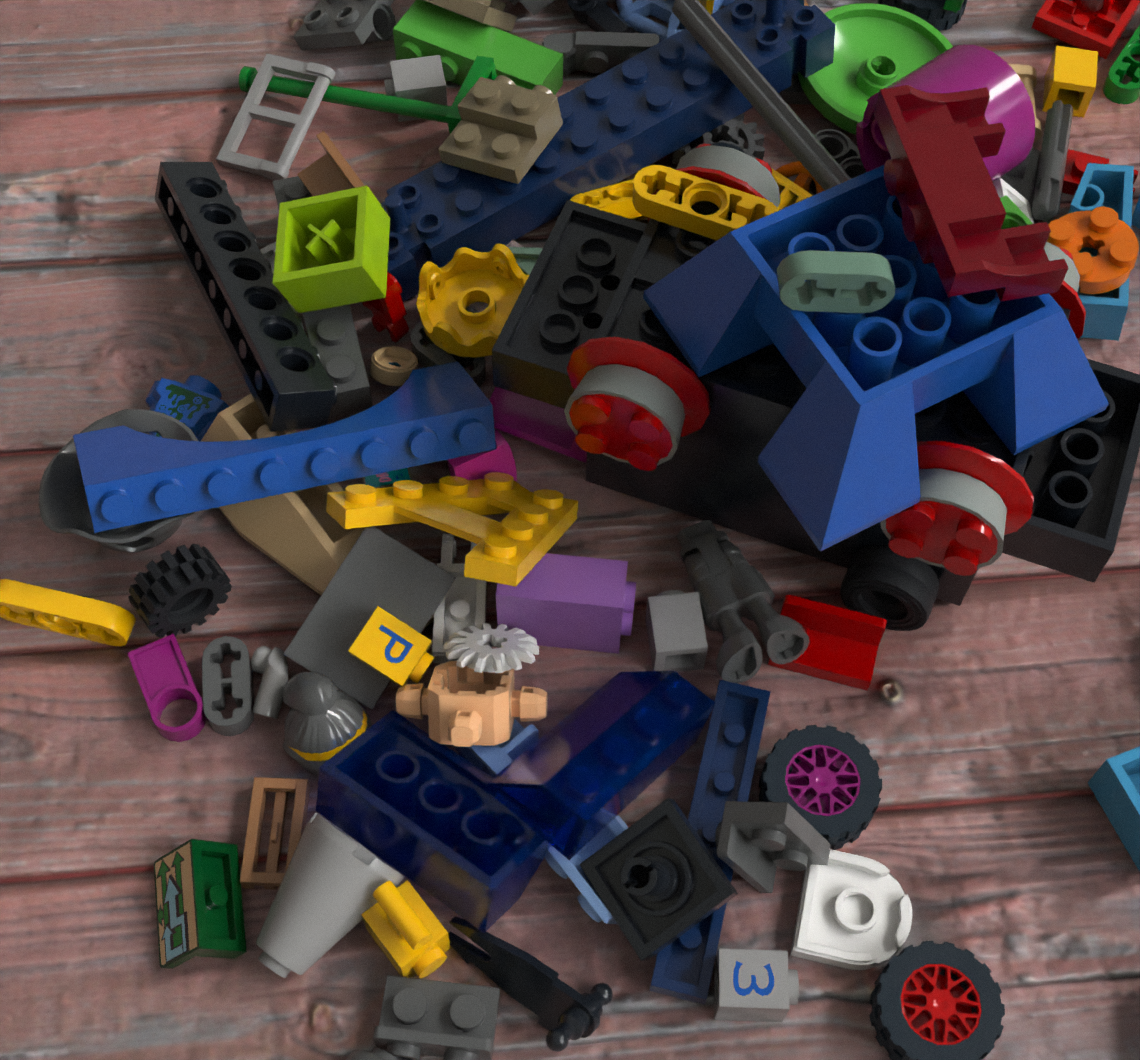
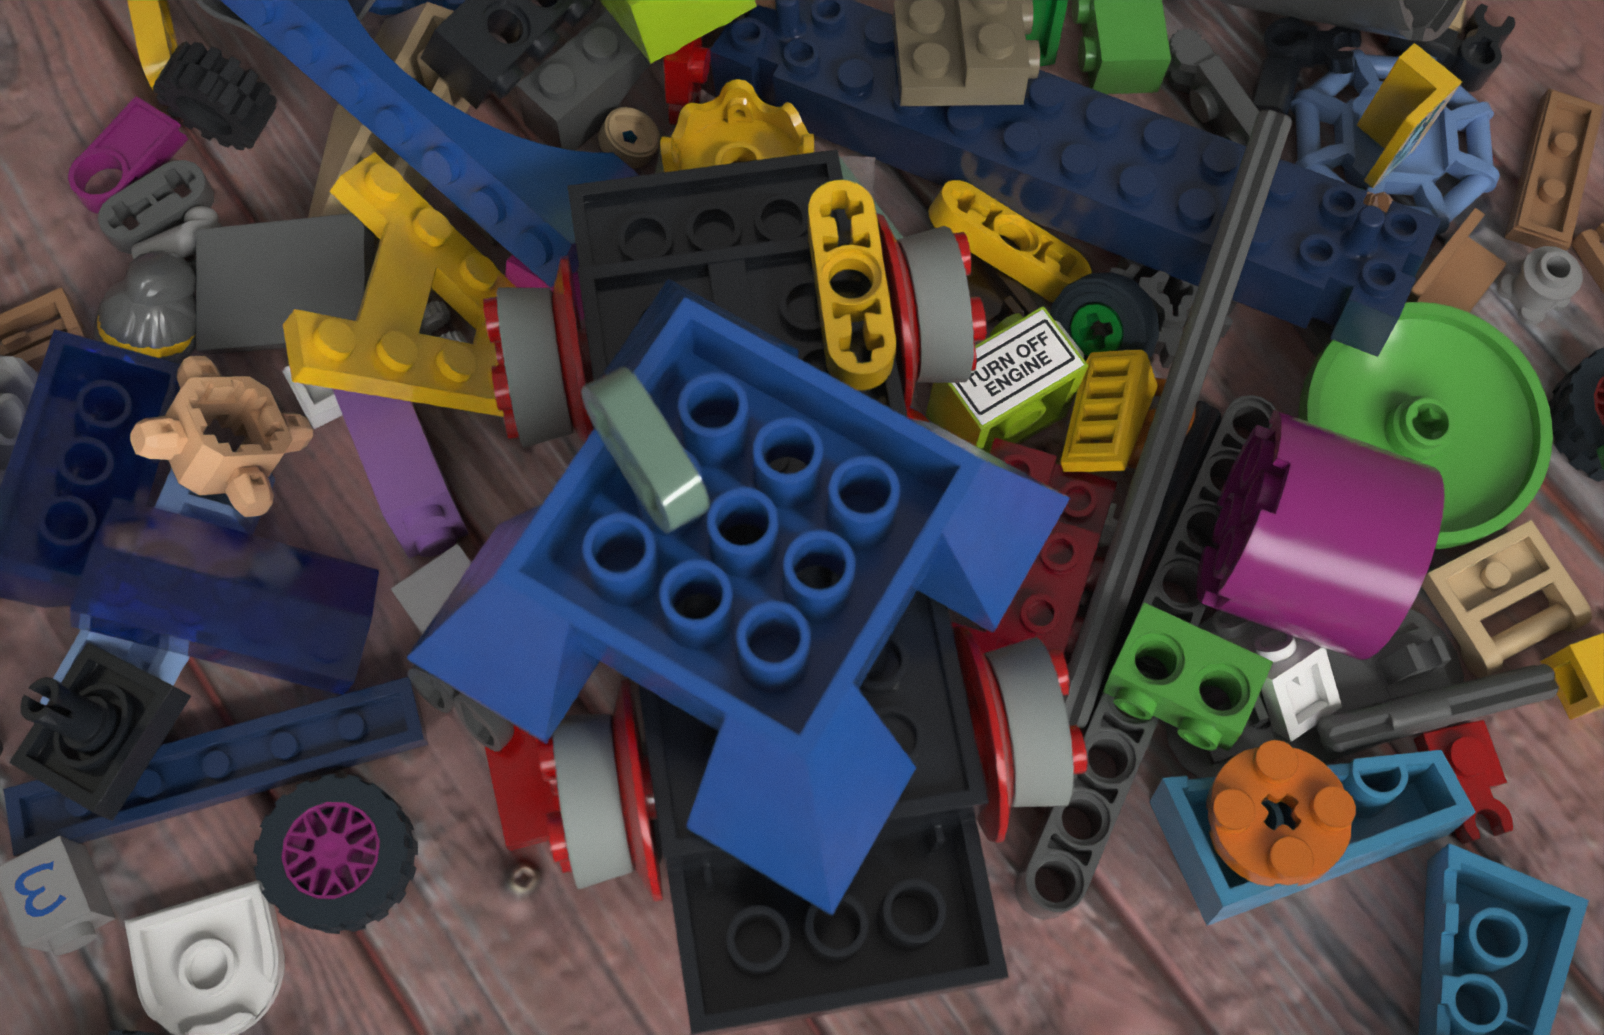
camera: 55 degrees right, 10 degrees up
(392, 648) = (241, 322): yellow brick -> none
(476, 652) = (297, 440): white gear -> none
(767, 835) = (206, 823): dark grey bracket -> none
(951, 199) = (863, 512): dark red bracket -> none

